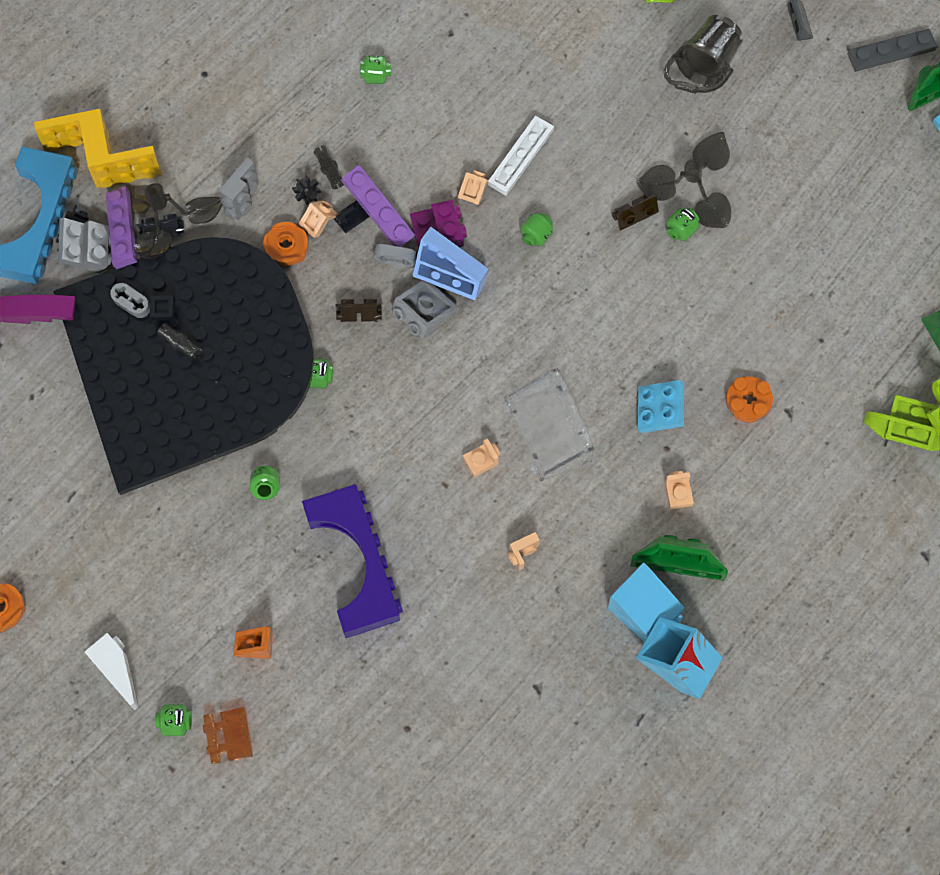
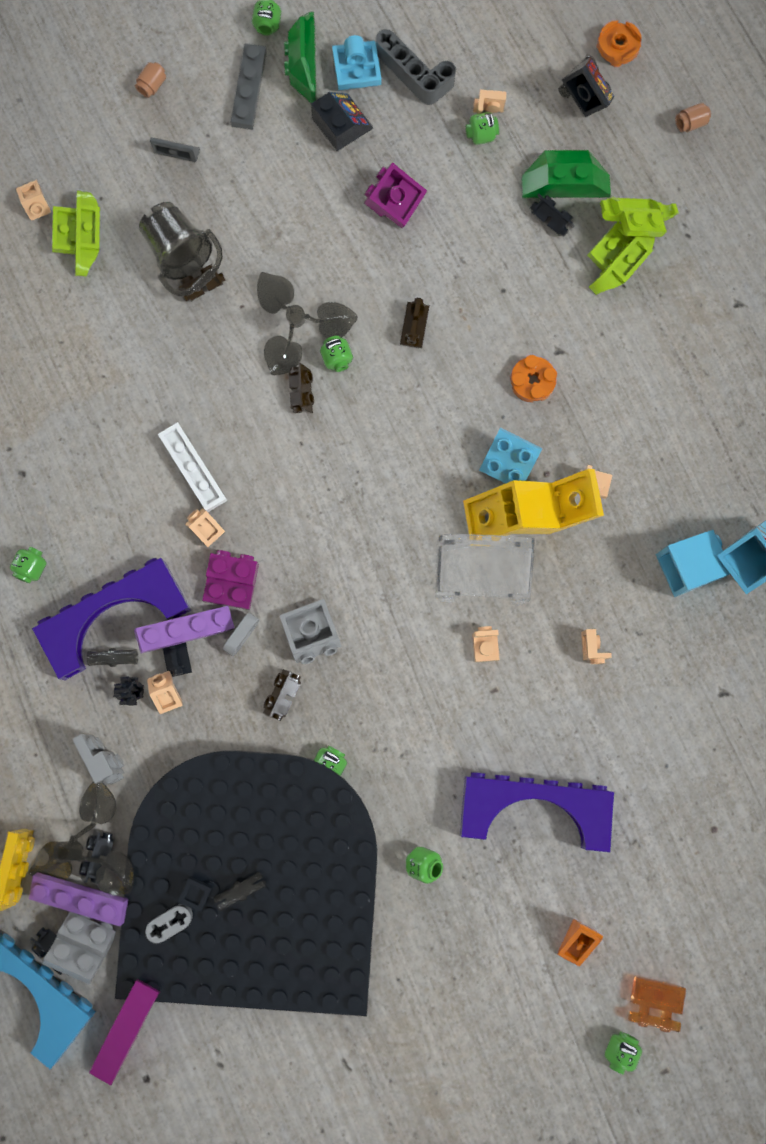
camera: 70 degrees left, 10 degrees up
(113, 663) = (544, 1092): white slope -> none
(295, 235) = (164, 743): orange plate -> none
(332, 122) = (65, 632): none -> dark purple arch
(449, 266) = (282, 587): light blue wedge -> none
(536, 229) = (278, 488): bright green head -> none
(625, 439) = (535, 506): none -> yellow bracket
(681, 557) = (658, 512): green wedge -> none
(695, 100) = (212, 284): none -> dark brown hinge
(746, 277) = (414, 323): none -> dark brown hinge
(856, 208) = (394, 195): none -> magenta plate
(905, 134) = (339, 119): none -> black slope
(917, 359) = (559, 220): none -> black hinge

